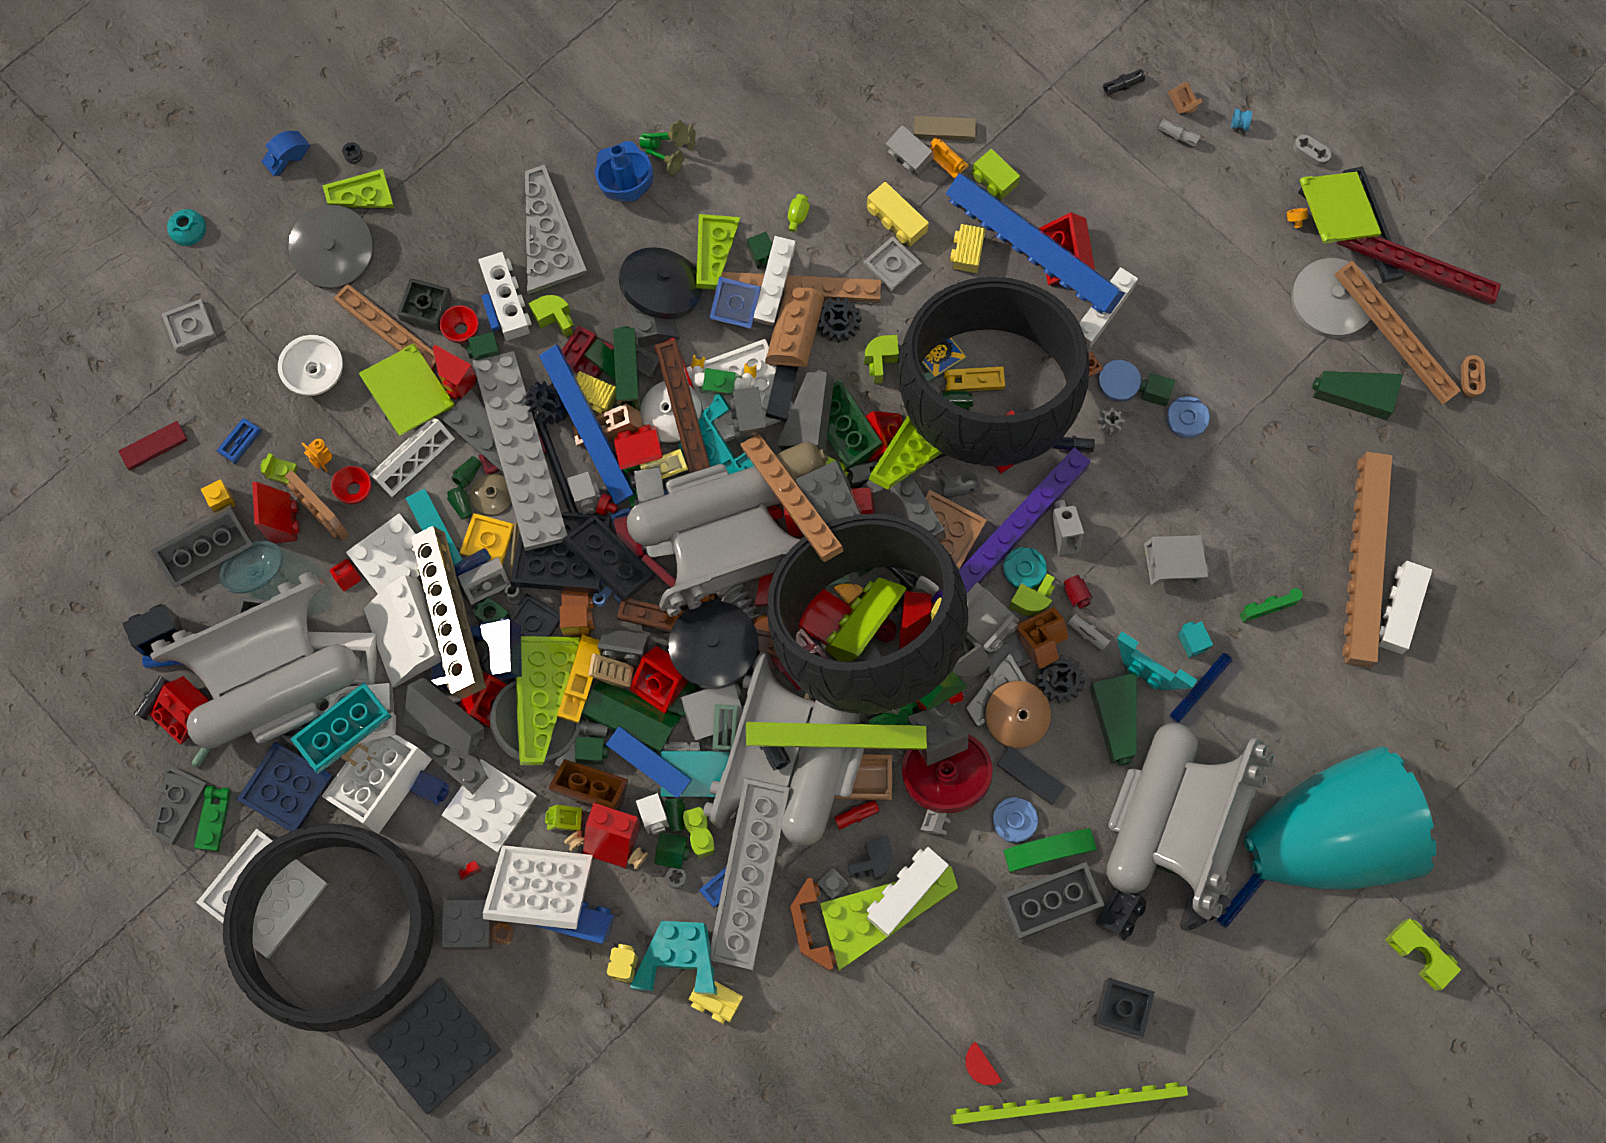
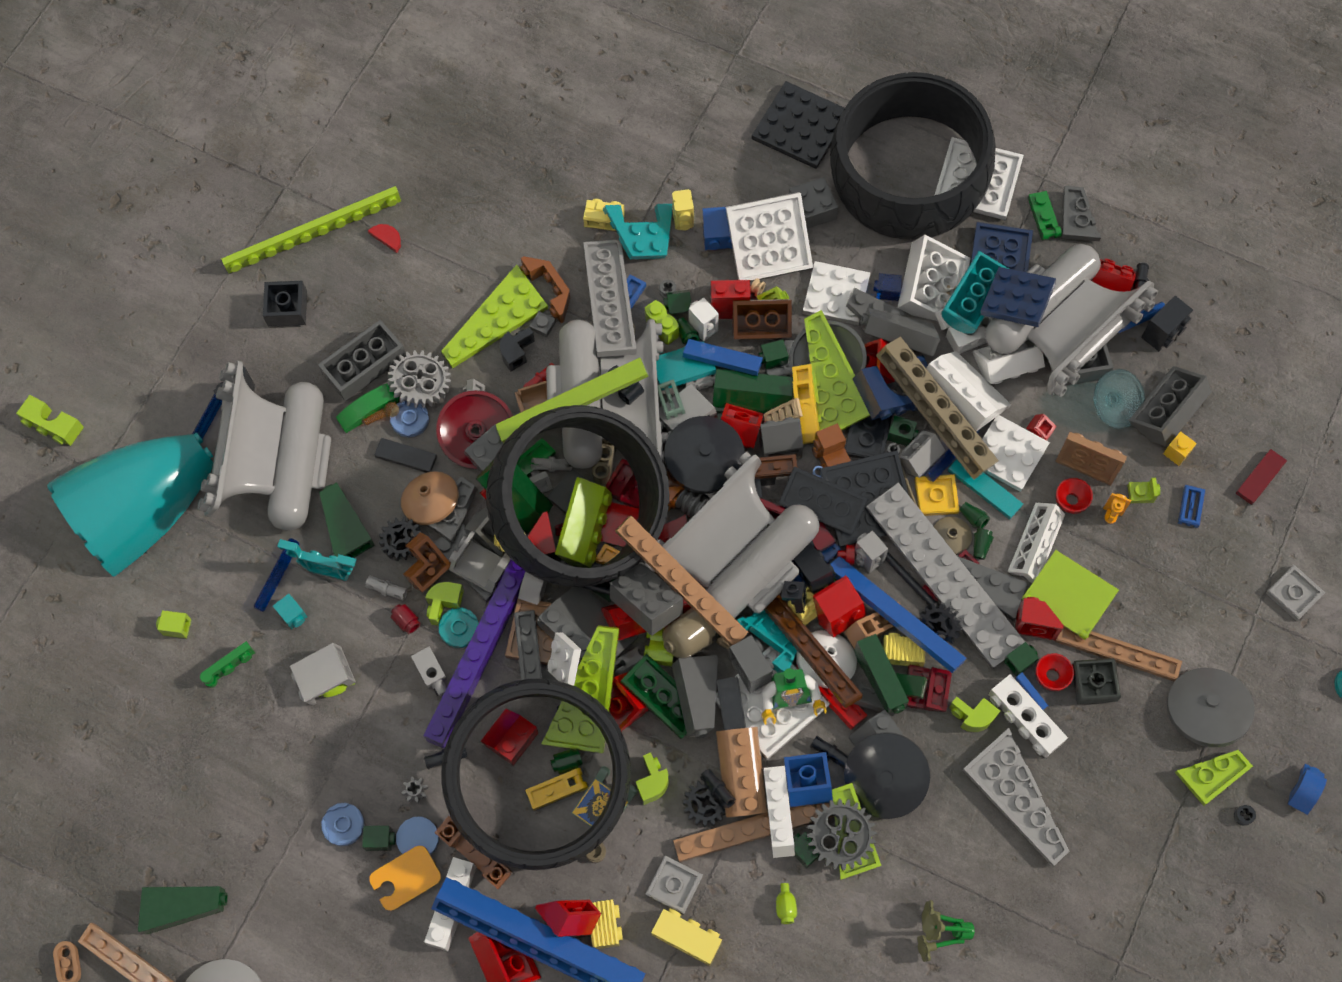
camera: 165 degrees right, 5 degrees down
(275, 513) = (1127, 437): red slope -> none
(302, 691) = (1018, 296): none -> dark blue plate
(305, 355) = (1174, 577): white dish -> none
(471, 869) = (829, 242): red tile -> none
(623, 172) = (974, 880): blue piece -> none
(637, 858) = (703, 290): tan bush -> none
(681, 461) = (795, 593): none -> black bracket
(702, 328) = (832, 751): none -> black pin
(741, 251) = (860, 839): none -> dark grey gear
(823, 318) = (717, 788): none -> black pin
(907, 891) = (479, 328): white brick -> none
(932, 475) = (564, 659): none -> white plate
(962, 511) = (528, 645): none -> dark grey tile
(985, 877) = (419, 379): none -> light grey gear
(1000, 255) = (570, 917): none -> red slope
(1034, 832) = (390, 409): none -> clear orange bar
(1121, 913) = (304, 370): black bracket -> none
(1135, 348) = (411, 875): none -> light orange piece
(1320, 667) = (173, 624): none -> lime brick
(1368, 560) = (145, 741): medium nougat brick -> none
(1403, 607) = (104, 704): white brick -> none

